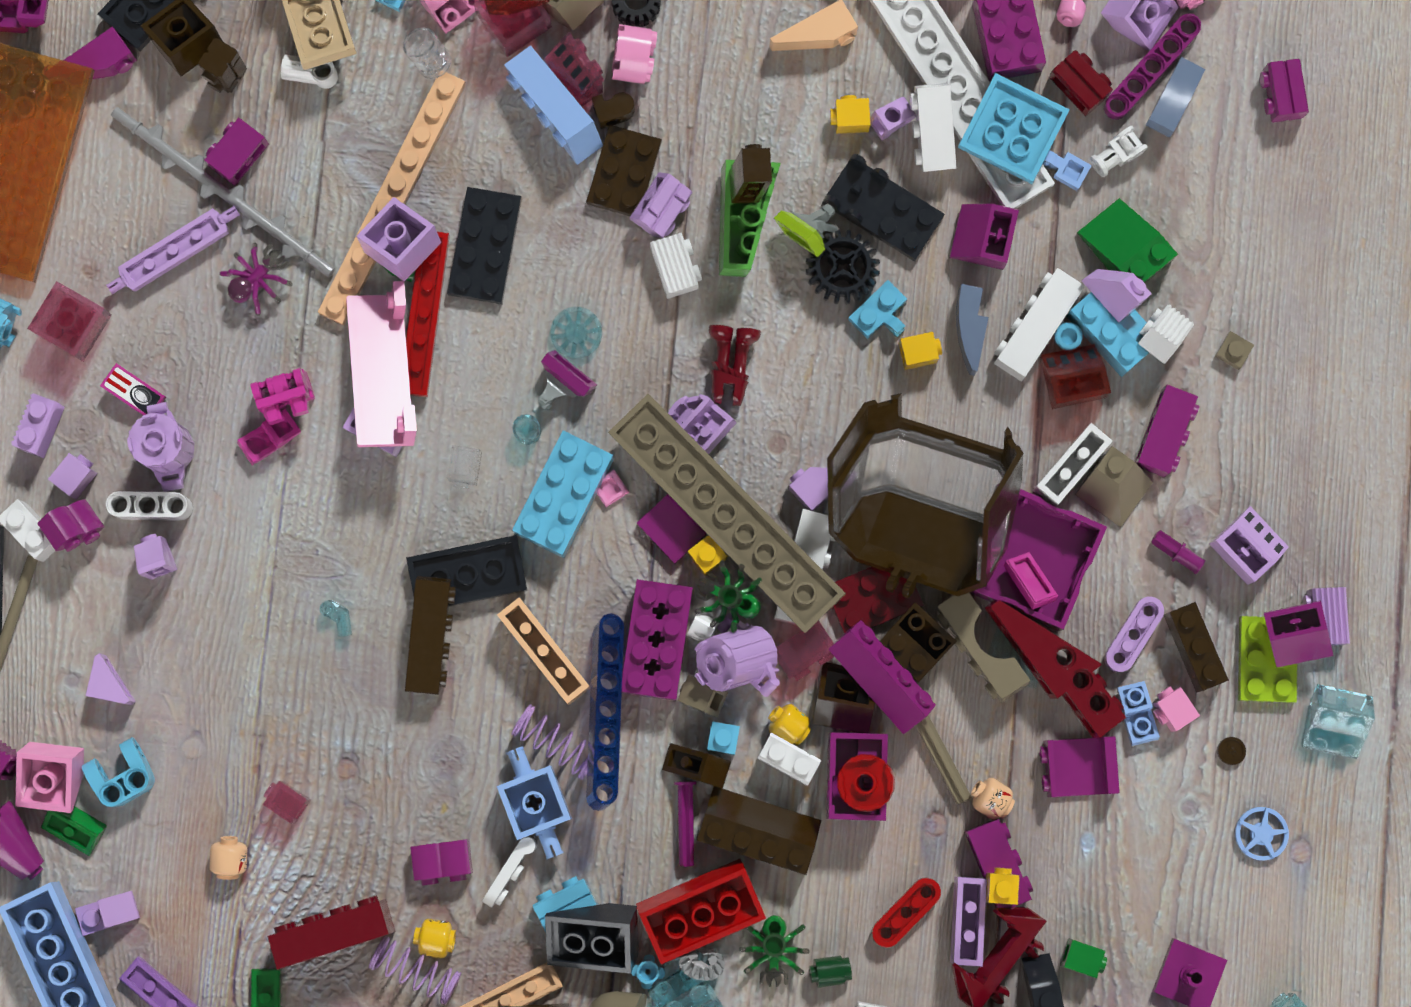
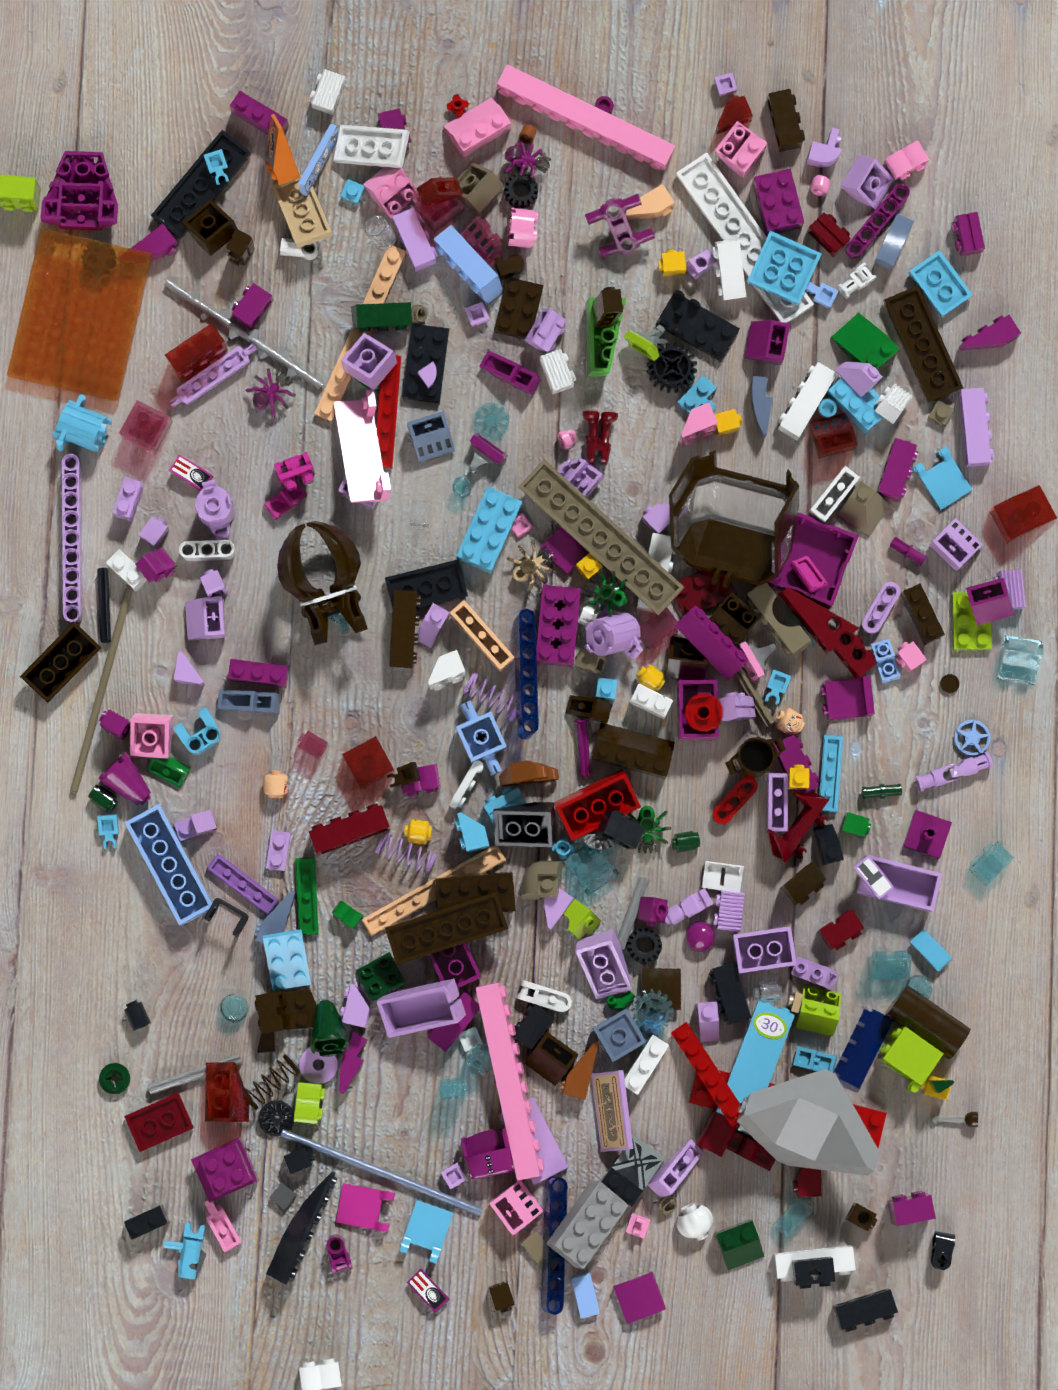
camera: 10 degrees left, 0 degrees up
(141, 606) = (205, 618): none -> lavender slope
(149, 216) = (196, 352): none -> clear red brick
(197, 732) = (249, 701): none -> sand blue slope
(212, 691) = (258, 673): none -> magenta brick
(227, 956) = (278, 850): none -> lavender plate
(300, 594) = (315, 603): none -> dark brown piece
(366, 832) = (368, 762): none -> clear red brick
(419, 855) = (406, 775): none -> dark brown plate
(422, 174) = (381, 316): none -> dark green brick
(472, 631) = (432, 625): none -> lavender slope
(478, 64) = (415, 239): none -> lavender brick
(482, 173) = (419, 313): none -> dark tan plate
(485, 353) = (430, 436): none -> sand blue slope
(486, 262) = (428, 374): none -> lavender tile
(487, 699) = (447, 669): none -> white slope
(514, 947) = (473, 834): none -> medium azure slope
(562, 177) = (477, 314): none -> lavender plate
(602, 859) = (527, 773): none -> dark orange connector
(607, 264) = (510, 372): none -> magenta slope
(621, 551) = (530, 567): none -> animal
(681, 365) = (565, 440): none -> bright pink tile
(733, 953) = (620, 829): none -> black brick
(776, 57) = (620, 226): none -> magenta piece
(879, 350) = (699, 424): none -> bright pink slope
(916, 775) = (737, 707): none -> lavender brick
(939, 852) = (755, 756): none -> dark brown container
(947, 702) = (756, 659): none -> bright pink piece
(978, 741) = (777, 684): none -> medium azure plate
(1050, 874) = (831, 771): none -> medium azure tile
(1125, 908) = (882, 791): none -> dark green pin
(1212, 248) = (923, 344): none -> dark brown plate
(1235, 449) = (944, 480): none -> medium azure flag
(1241, 161) = (940, 284): none -> medium azure plate
(1248, 879) = (965, 767): none -> lavender piece
(1283, 373) = (975, 427): none -> lavender brick
(1319, 241) = (995, 336): none -> magenta slope
(1349, 504) = (1022, 514): none -> clear red slope

